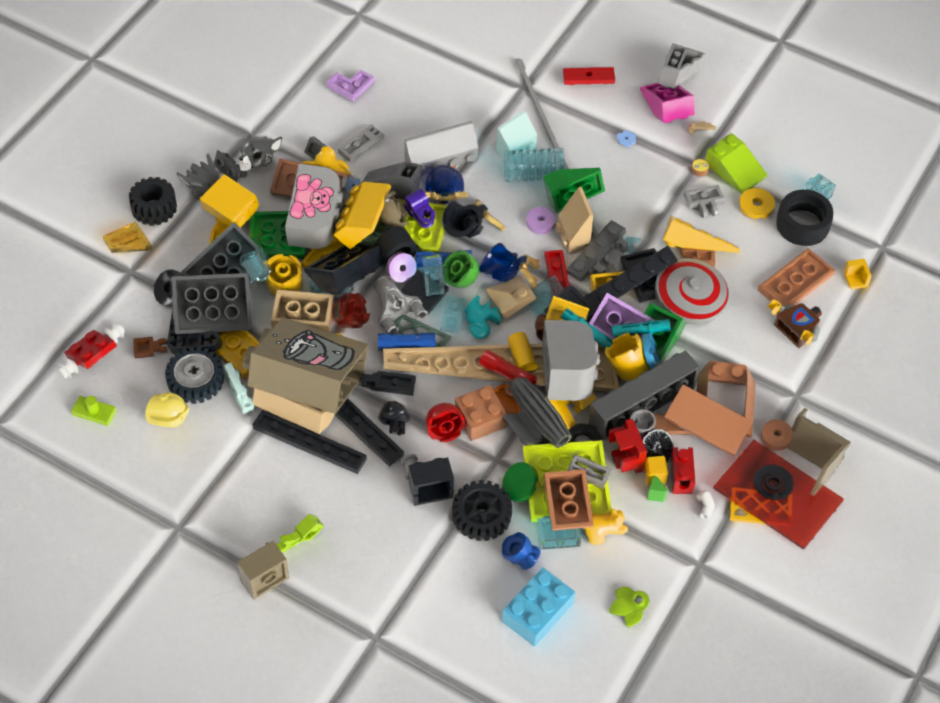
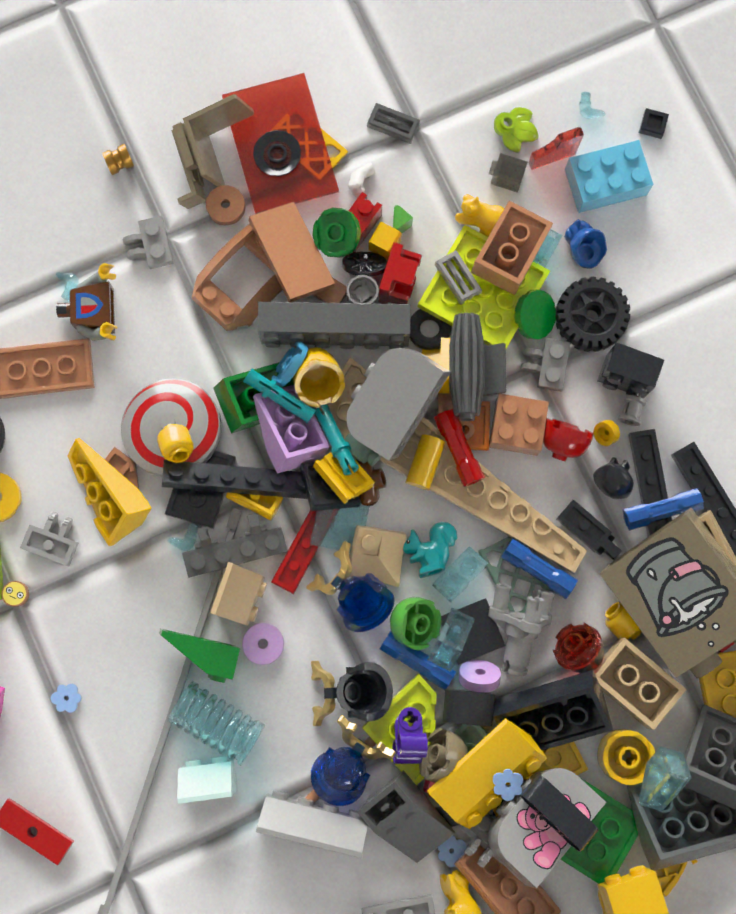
camera: 145 degrees left, 25 degrees up
(310, 200) = (559, 812): none -> black beam
(341, 422) = (645, 514): none -> blue axle
(348, 204) = (507, 791): none -> light blue plant
(418, 444) = (606, 432): none -> yellow tile
(484, 464) = (552, 366): none -> light grey hinge
(534, 674) = (653, 123): none -> black tile
(588, 599) = (561, 147): none -> clear red tile
(589, 651) = (585, 107): none -> clear light blue animal
(610, 567) = (507, 172): none -> clear smoke brick
(679, 269) = (175, 443): none -> yellow head
(689, 444) = (336, 232): none -> green tile
(703, 563) = (392, 123): none -> dark grey tile
(799, 386) = (155, 243): none -> light grey hinge
(825, 333) = (72, 282): none -> clear light blue animal
(868, 416) = (118, 159): none -> pearl gold wheel

